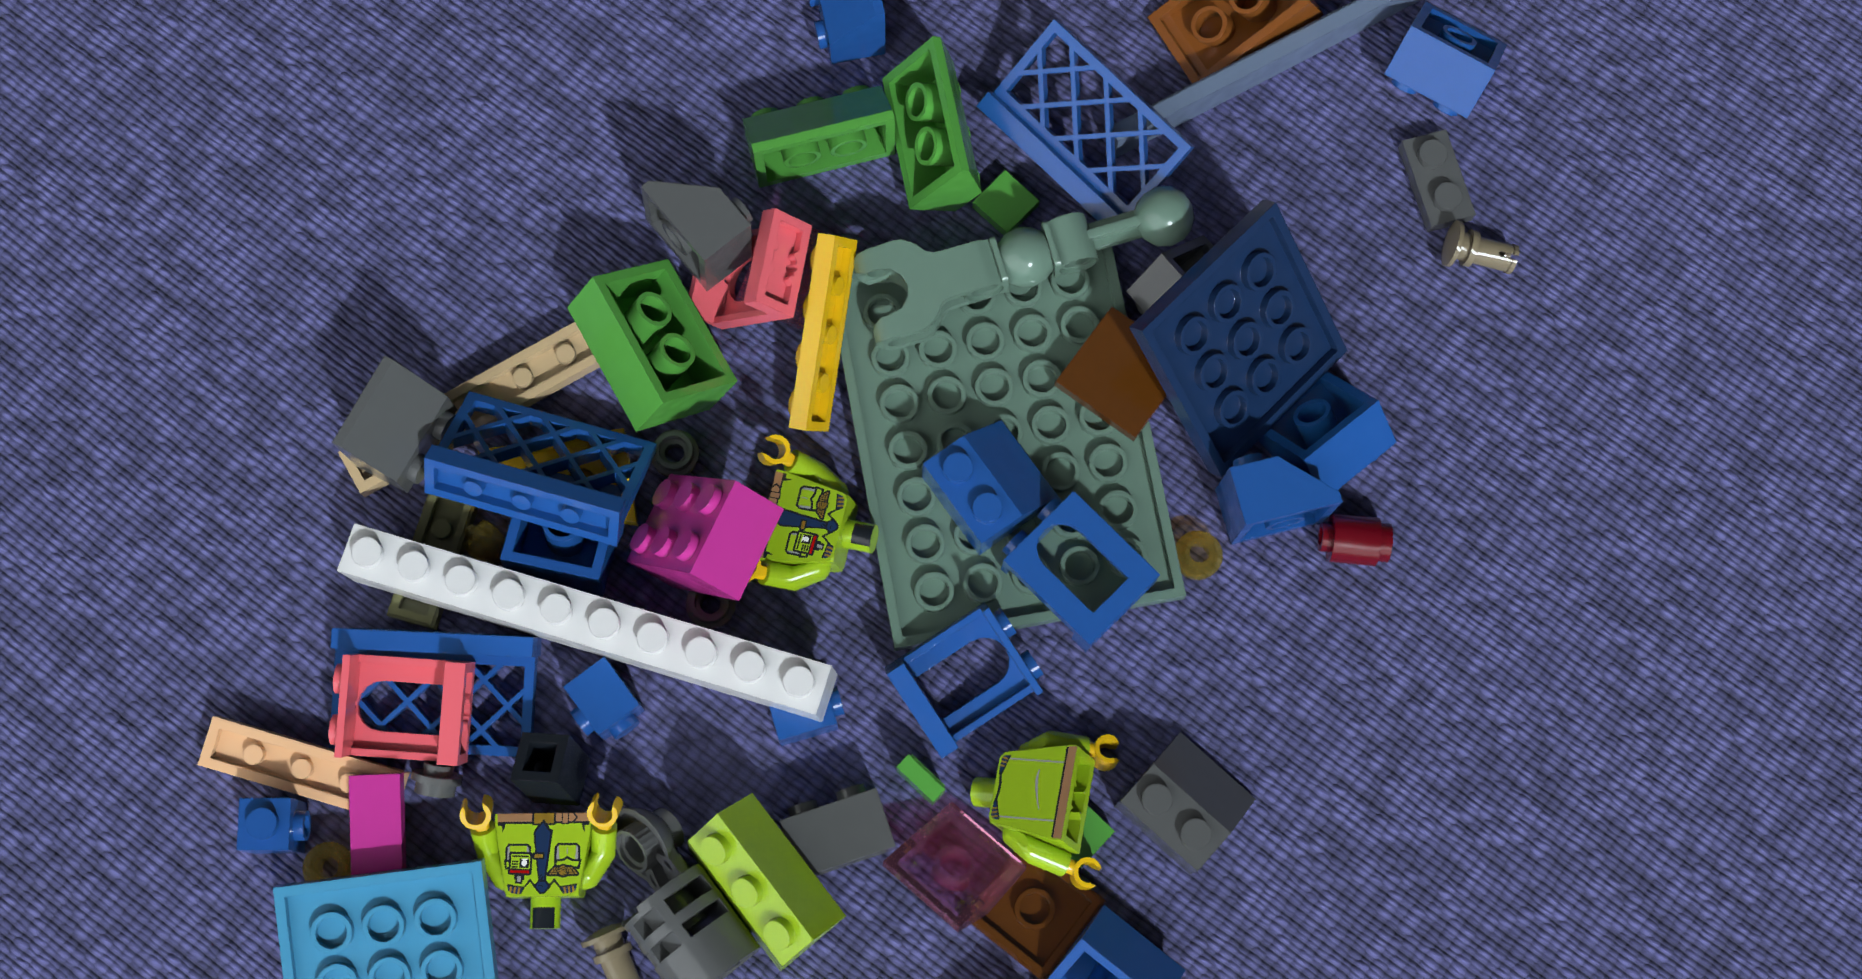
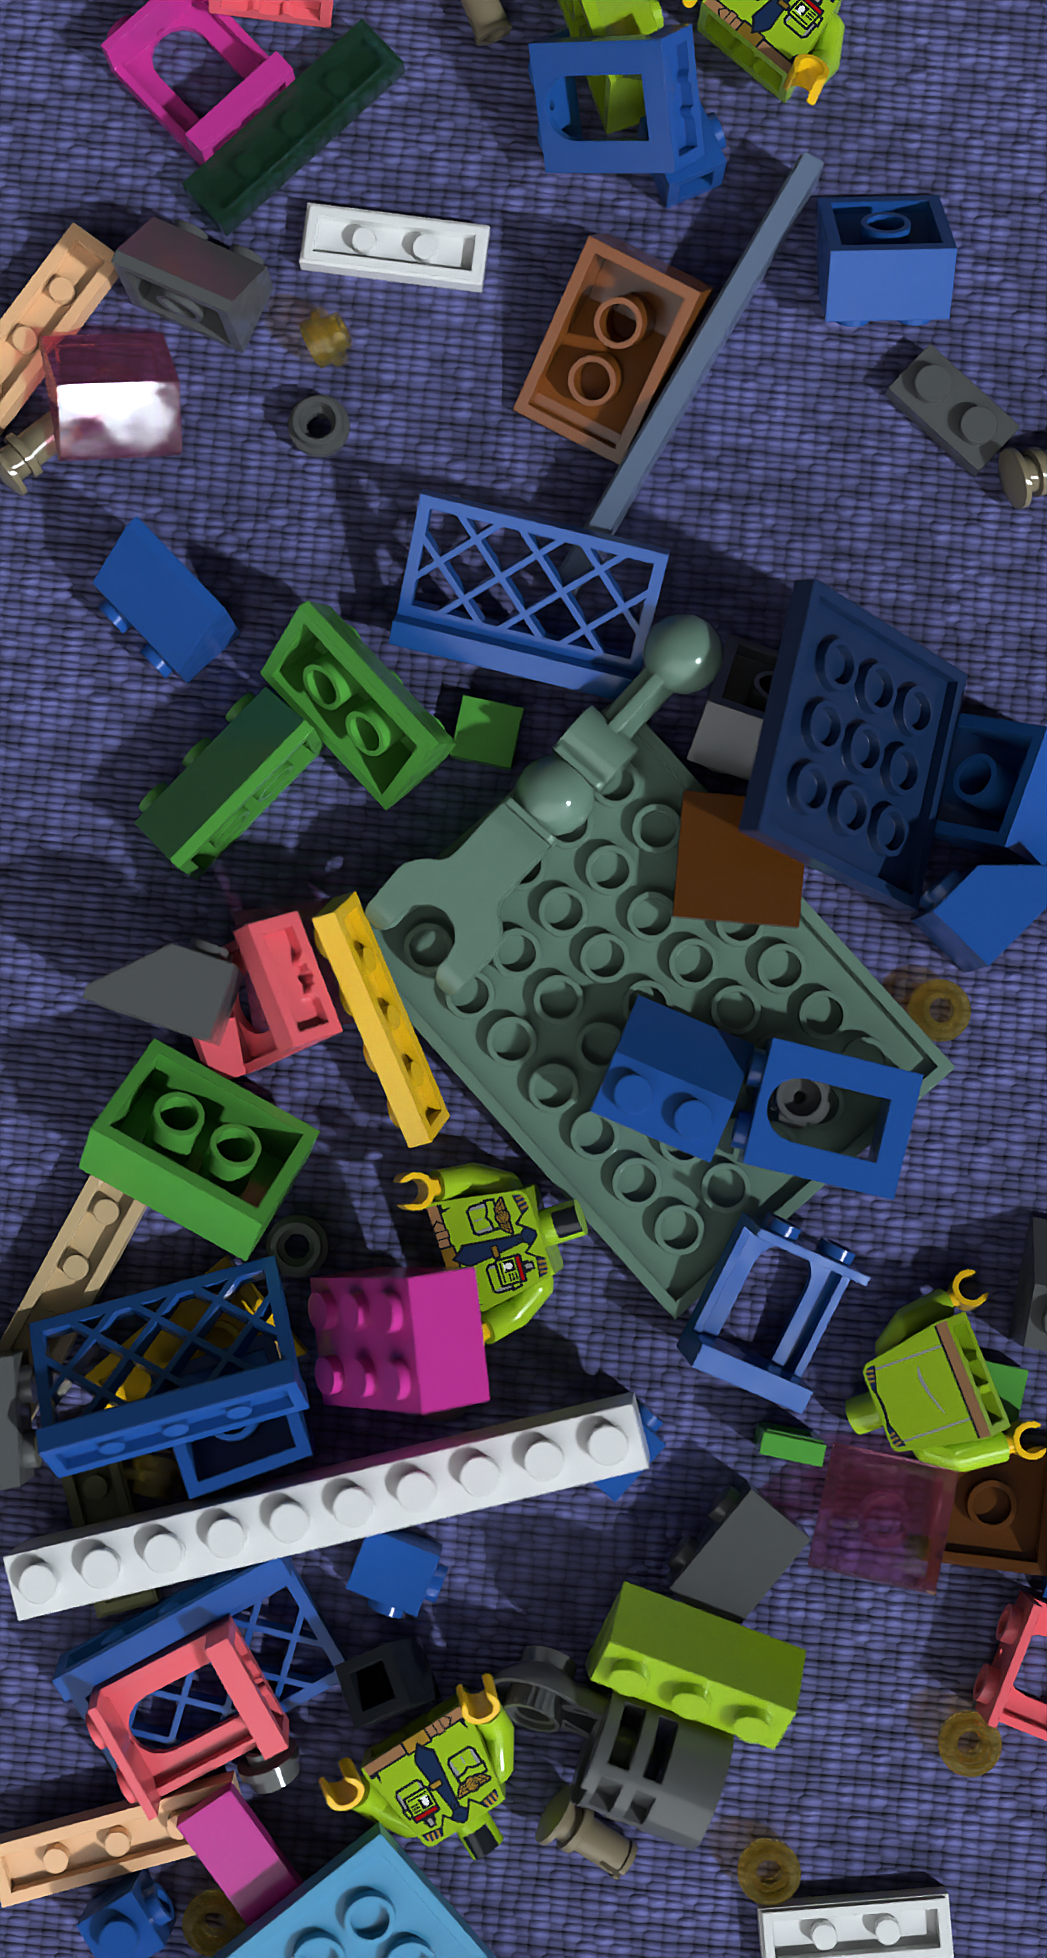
camera: 25 degrees left, 10 degrees up
(1059, 558) = (795, 1114): none -> dark grey plate

